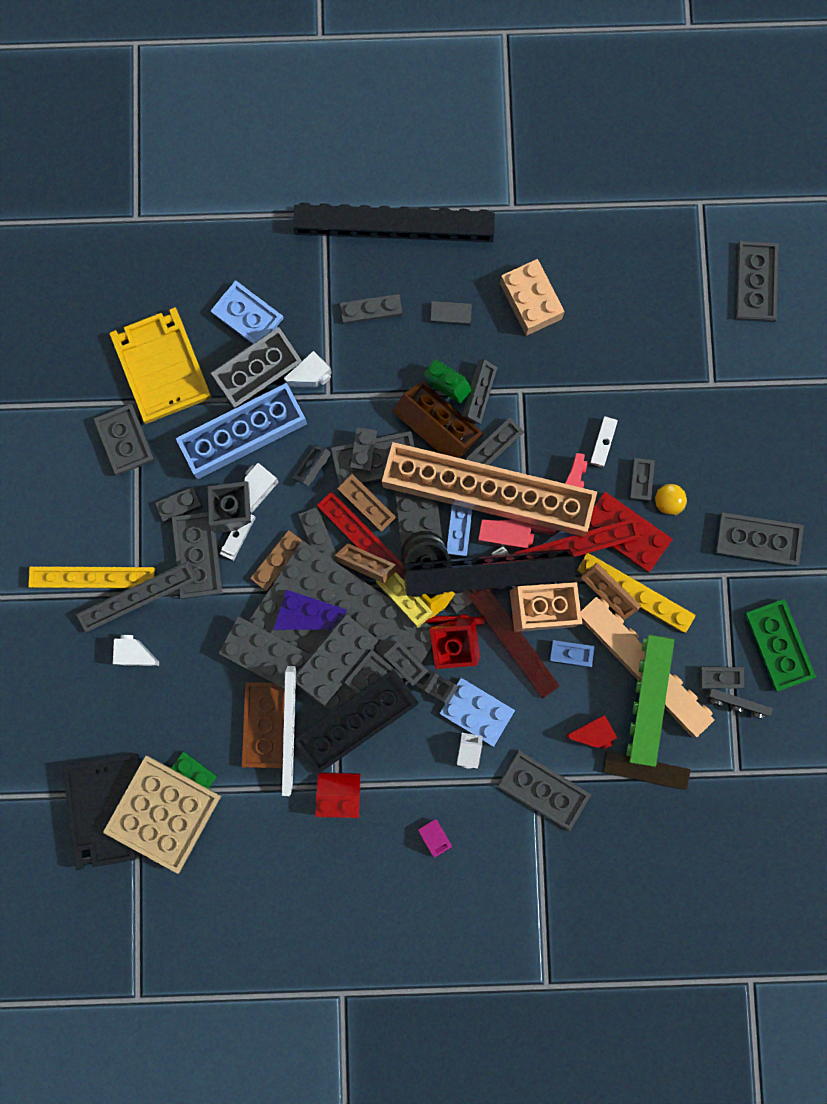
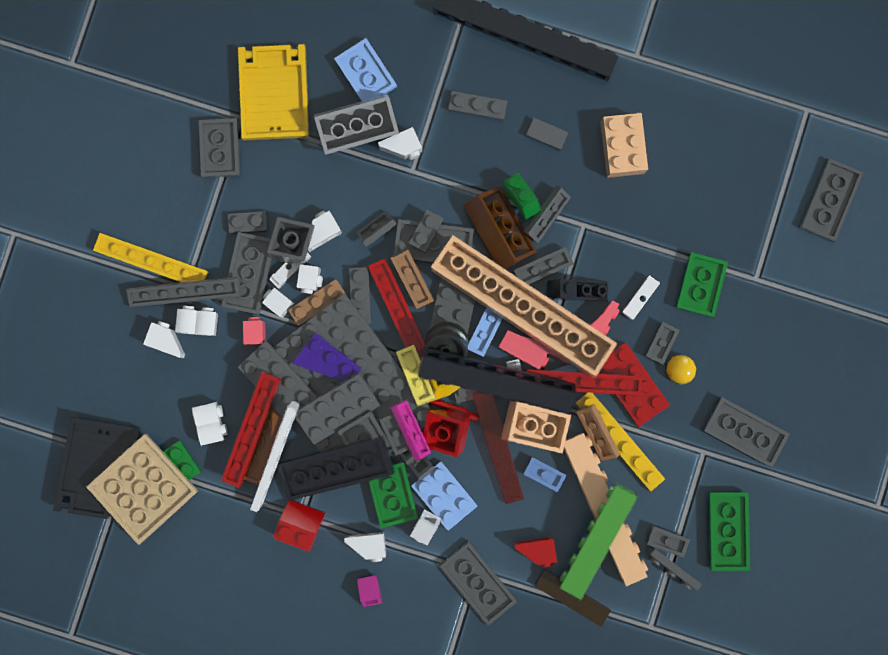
camera: 15 degrees right, 5 degrees up
(160, 623) = (196, 322): none -> white brick
(208, 722) = (209, 423): none -> white brick
(222, 612) = (254, 331): none -> coral brick
(236, 574) = (277, 302): none -> white brick
(241, 431) = (324, 177): light blue brick -> none
(254, 711) = (251, 429): none -> red plate
(261, 539) = (309, 279): none -> white brick
(365, 563) = (392, 333): medium nougat plate -> none
(417, 790) = (368, 545): none -> white slope
(419, 654) = (410, 430): none -> dark pink tile
(425, 732) = (393, 498): none -> green plate
(537, 456) = (577, 290): none -> black slope
(660, 408) = (701, 284): none -> green plate

